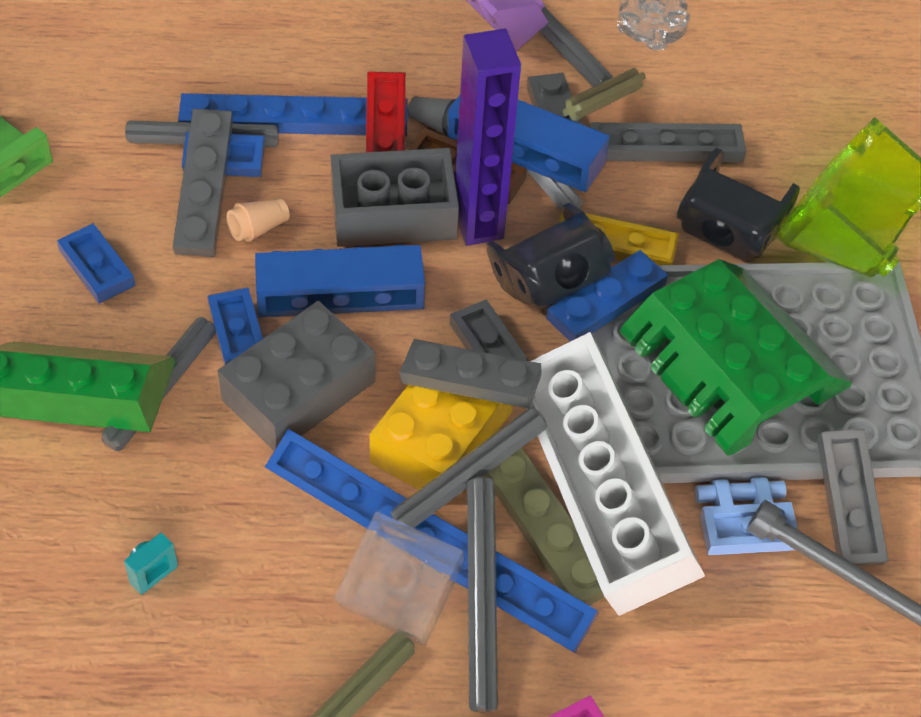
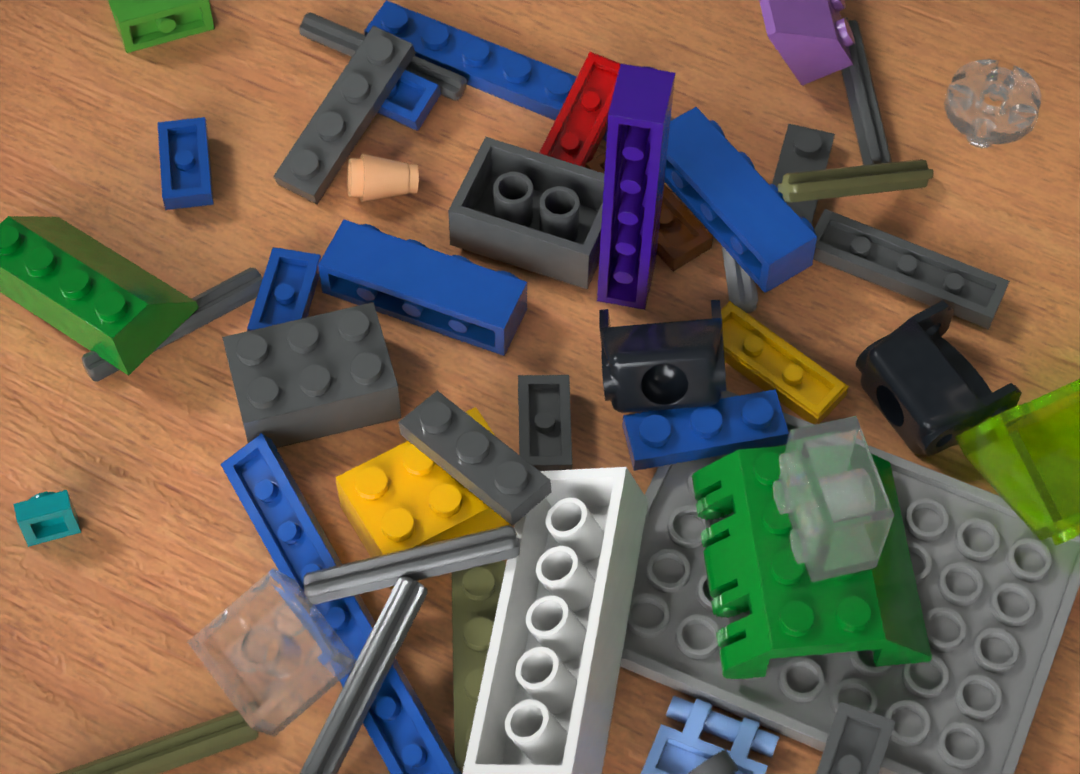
camera: 30 degrees right, 5 degrees up
(754, 289) = (832, 499): none -> clear brick

